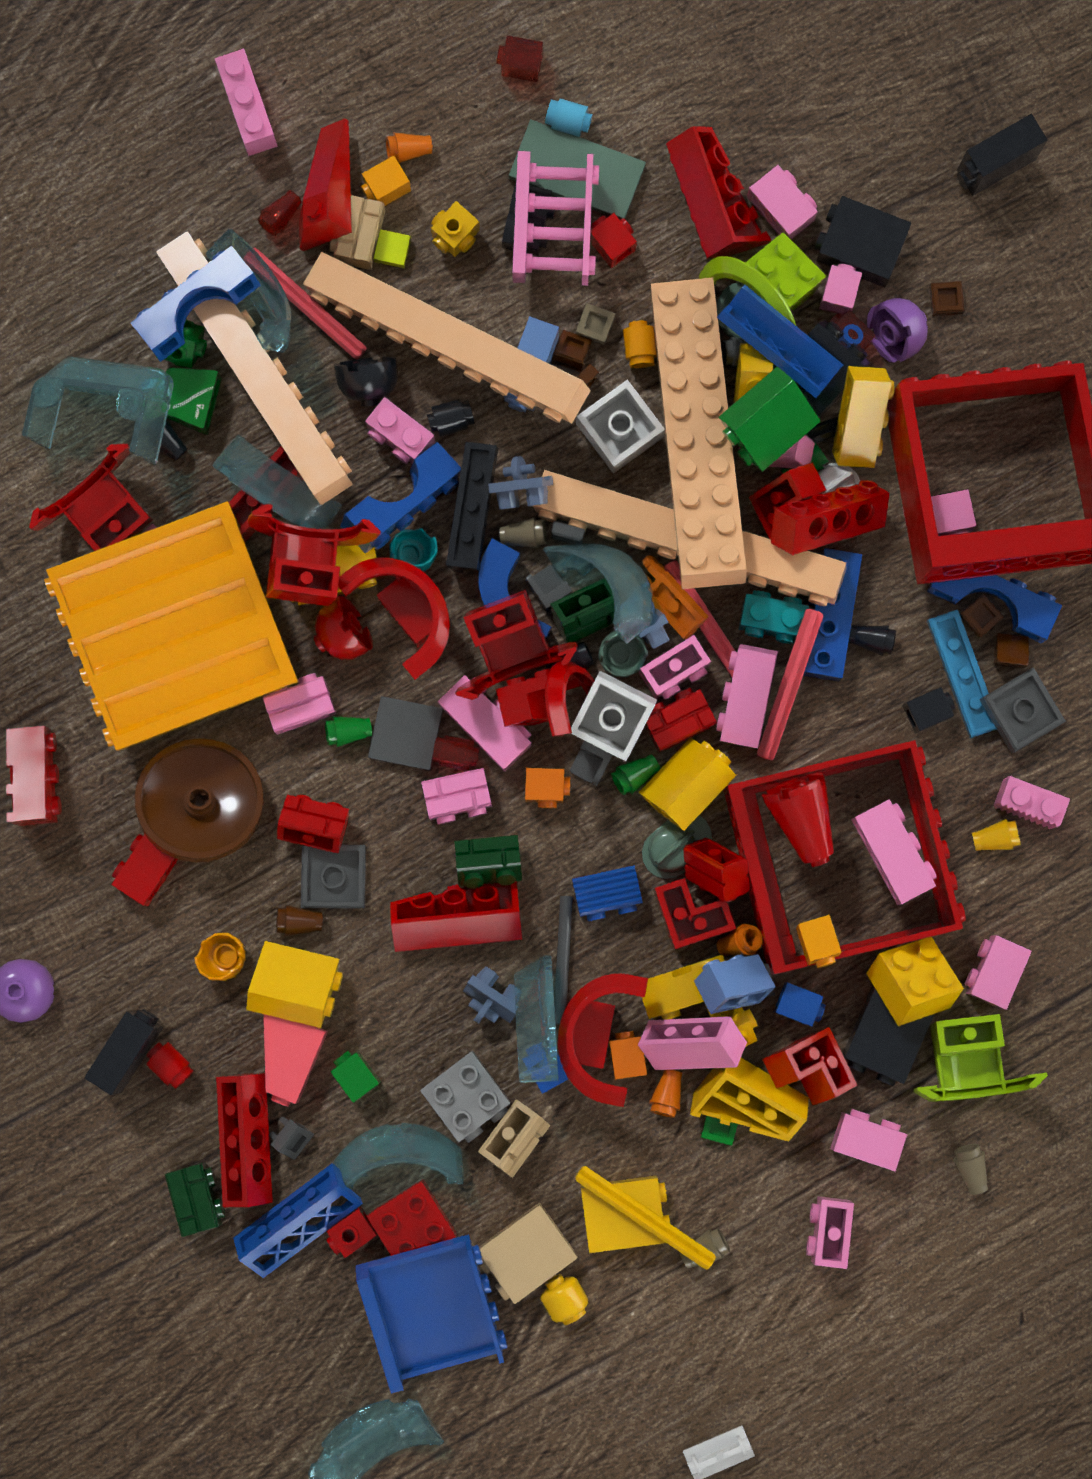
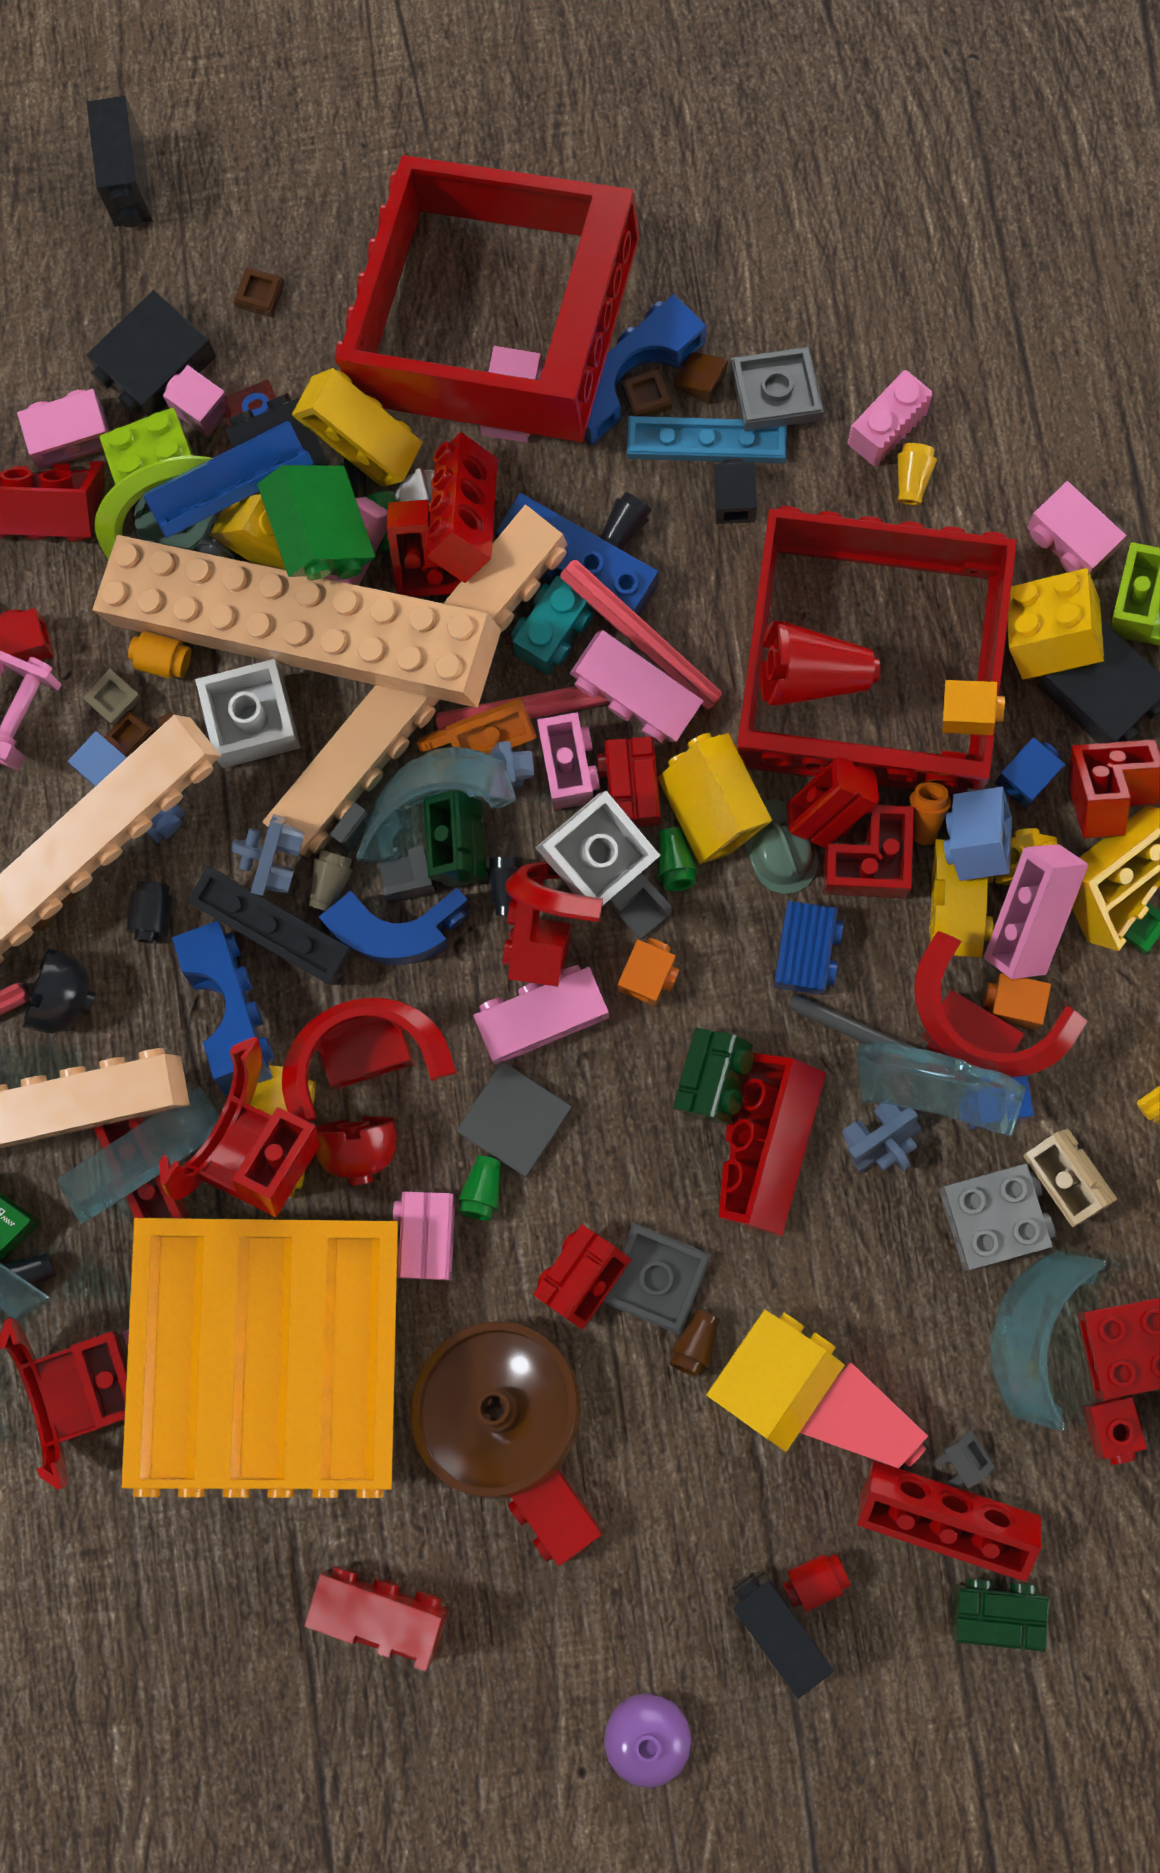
camera: 60 degrees left, 5 degrees down
(220, 957) = (704, 1460): light orange hair -> none
(290, 1219) = (1071, 1499): blue fence -> none
(354, 1075) = (917, 1347): green brick -> none
(398, 431) = (140, 980): bright pink brick -> none
(414, 547) = (289, 1015): teal hair -> none
(455, 753) = (563, 1066): clear red brick -> none
(457, 795) = (616, 1084): bright pink brick -> none
(509, 642) = (457, 939): red piece -> none
(622, 658) = (524, 821): sand green hair -> none
(667, 1094) = (1081, 972): orange cone -> none
(895, 851) = (896, 579): bright pink brick -> none
(899, 328) = (271, 350): medium lavender cylinder -> none

